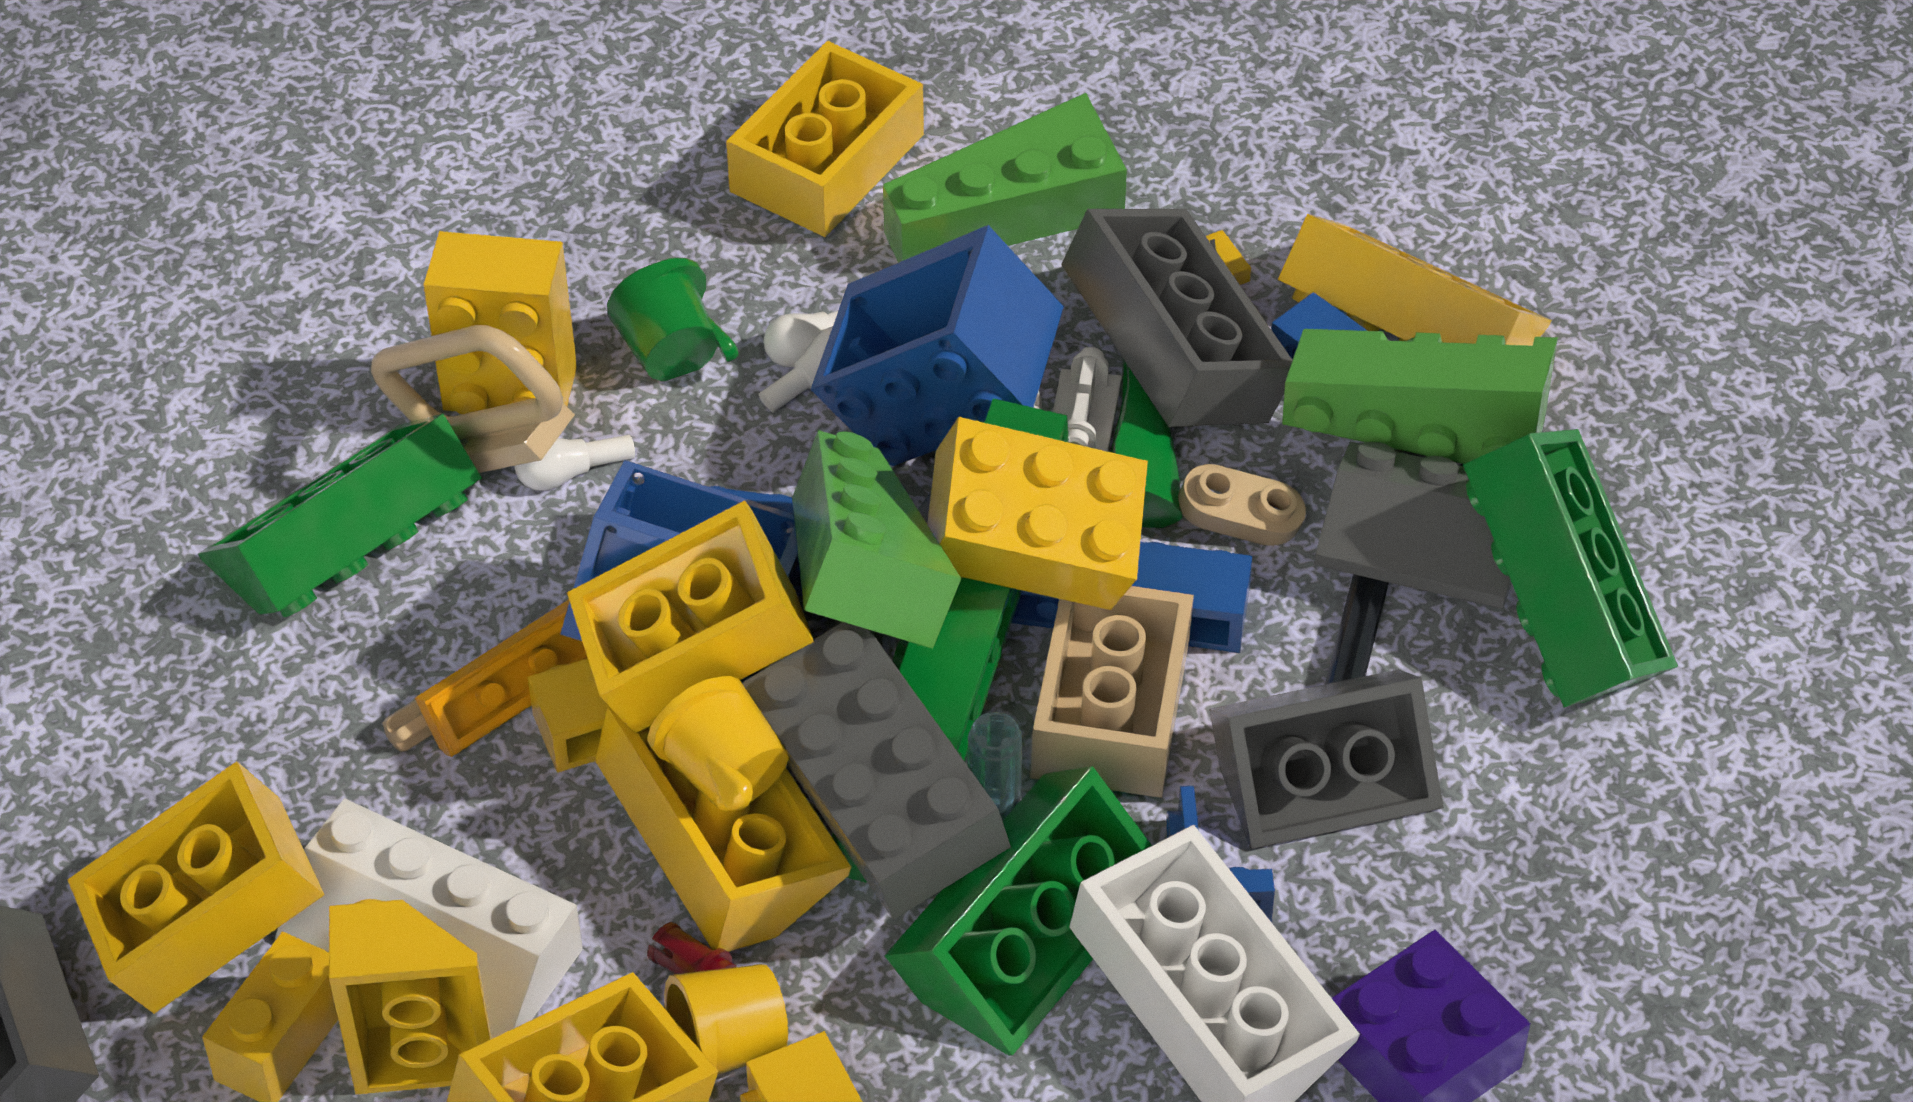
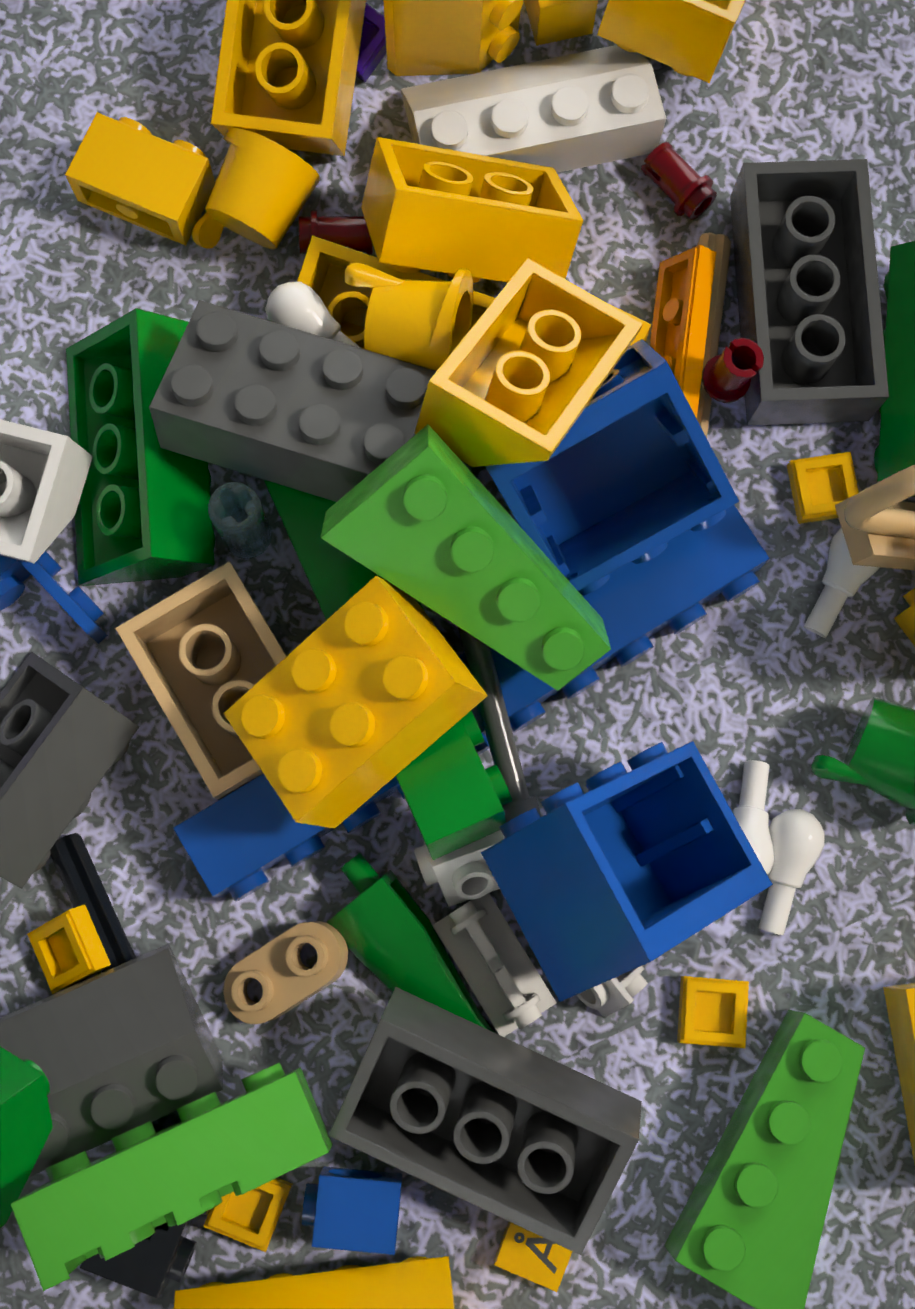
camera: 135 degrees right, 30 degrees up
(371, 779) = (679, 181): none -> dark red pin
(380, 624) = (809, 291): none -> dark grey brick
(506, 598) = (730, 373): none -> dark red pin
(515, 522) = (821, 484): none -> yellow tile
(587, 828) = (466, 212): none -> yellow brick
(801, 846) = (301, 308): none -> white piece
(1395, 623) = (68, 948): none -> yellow tile

